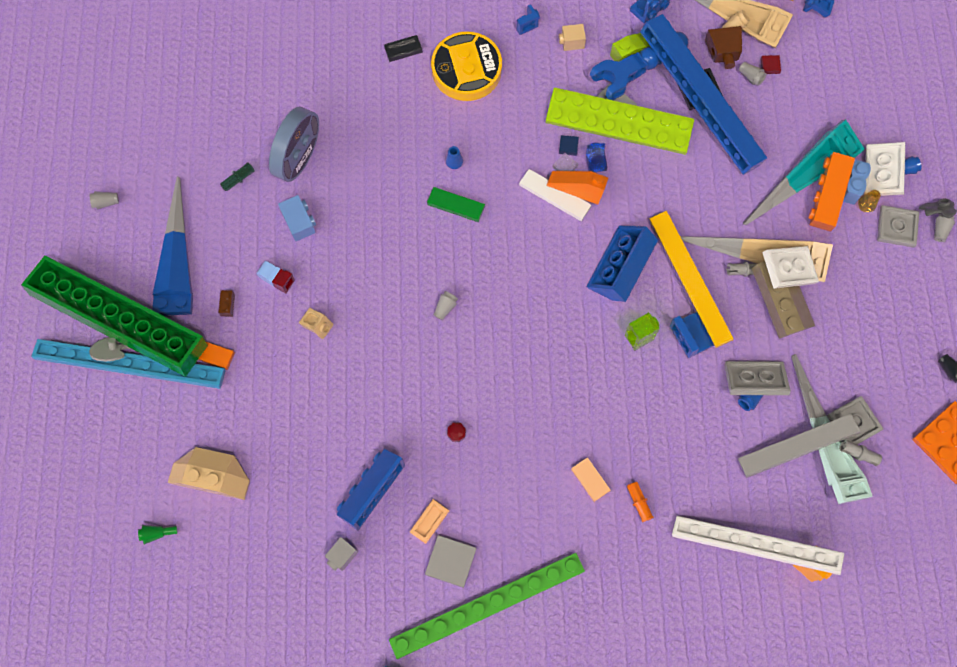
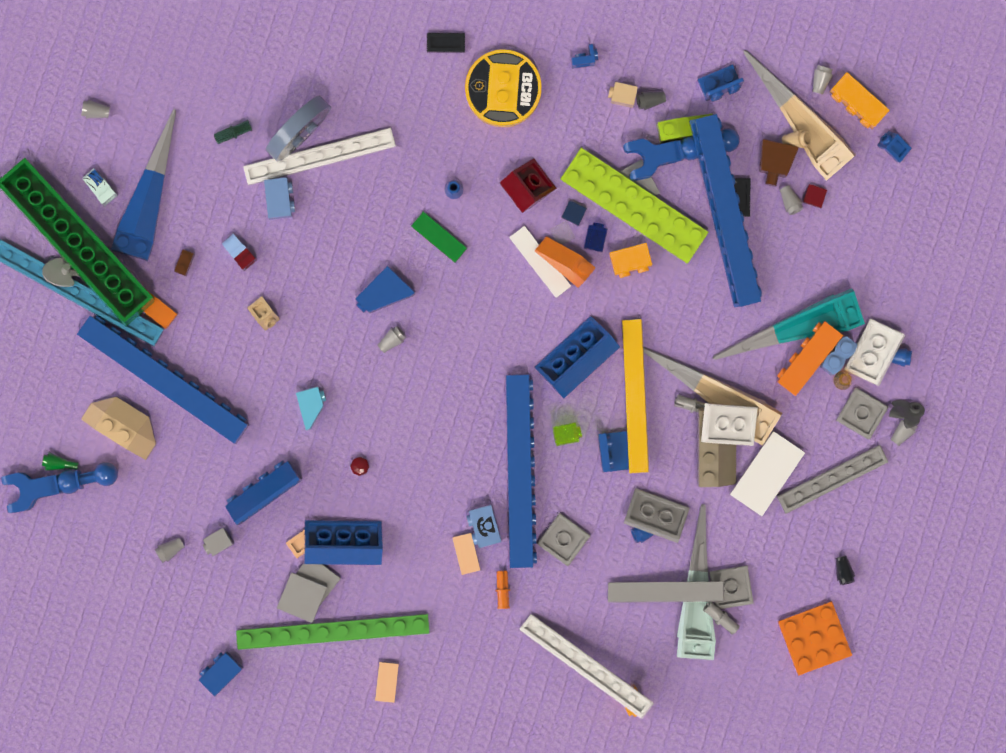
camera: 20 degrees right, 15 degrees up
(127, 263) = (99, 187): none -> light aqua leg
(150, 559) = (66, 482): none -> blue piece
(237, 415) = (162, 379): none -> blue brick
(293, 581) = (169, 550): none -> light grey cone
(324, 172) = (320, 156): none -> white tile
(389, 390) = (311, 405): none -> medium azure slope
(423, 265) = (383, 292): none -> blue slope
(444, 580) = (302, 597): none -> light grey tile
(466, 510) = (343, 542): none -> blue slope
(518, 135) = (527, 185): none -> dark red slope
(561, 637) = (386, 682): none -> light nougat tile
(597, 34) = (647, 100): none -> dark grey cone
(598, 446) = (484, 526): none -> medium blue brick
(612, 385) = (519, 471): none -> blue brick
(635, 165) = (630, 259): none -> light orange brick
(678, 433) = (563, 539): none -> light grey tile
(840, 306) = (767, 473): none -> white tile
(899, 292) = (832, 479): none -> light grey tile

